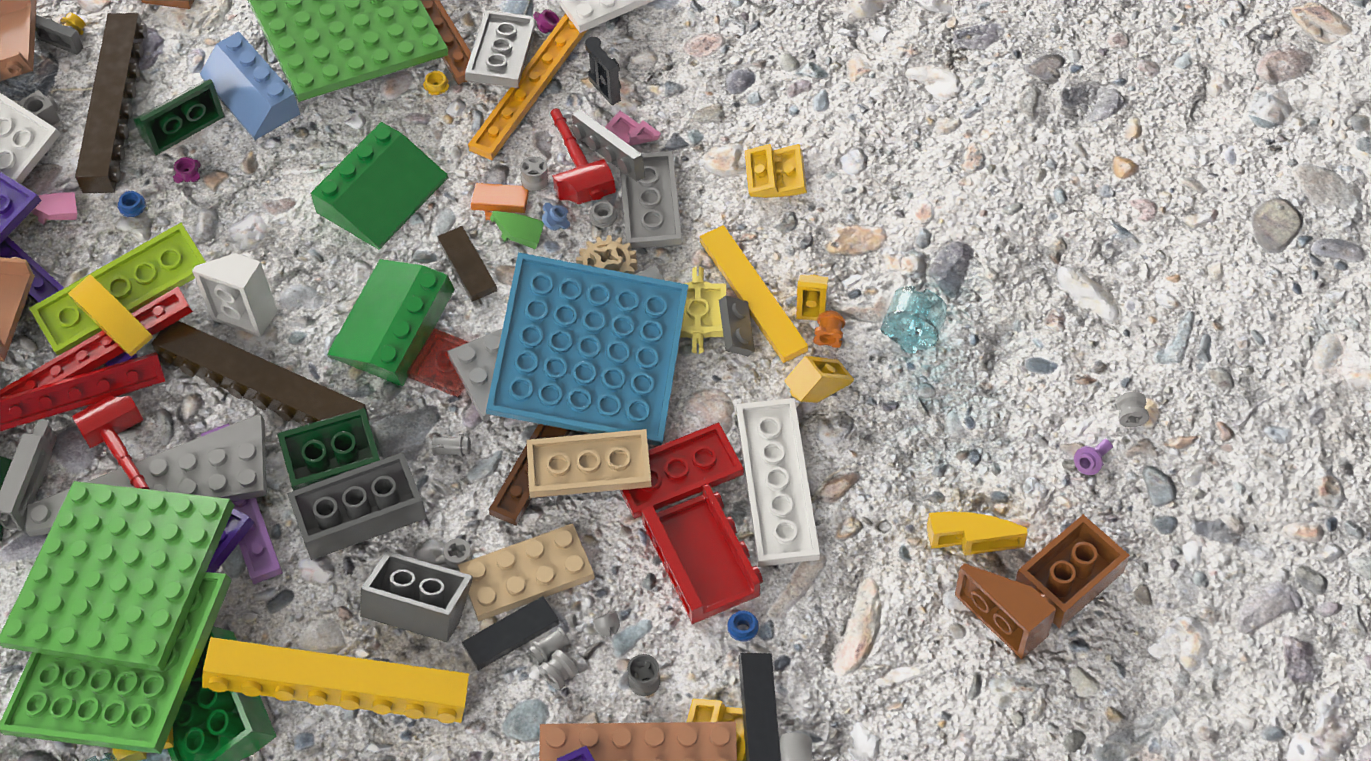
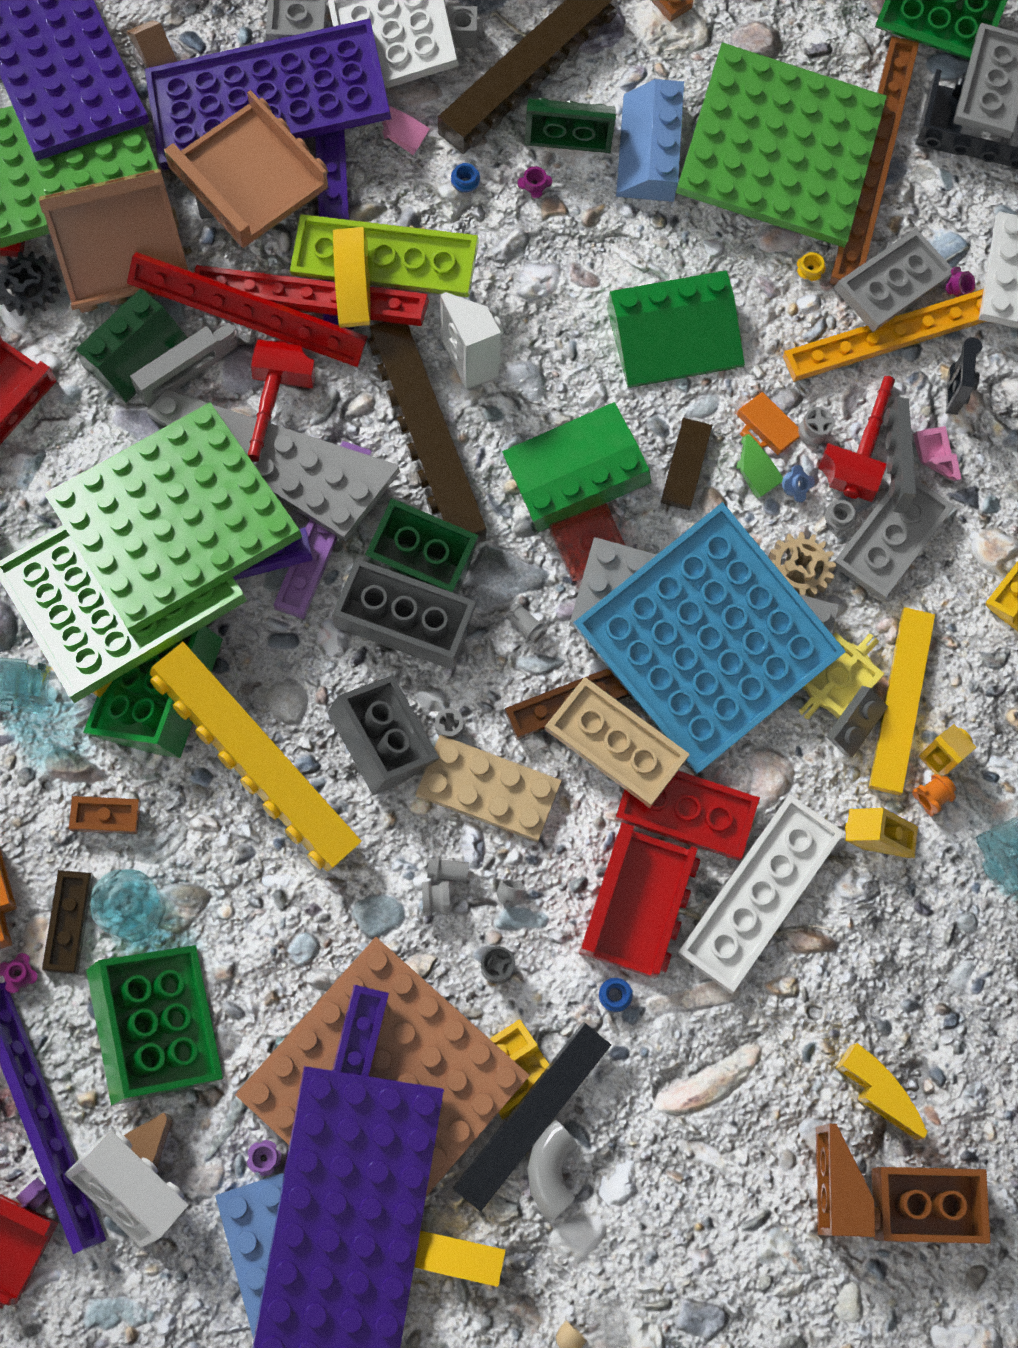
camera: 35 degrees right, 15 degrees up
(510, 633) = (430, 830): black tile -> none

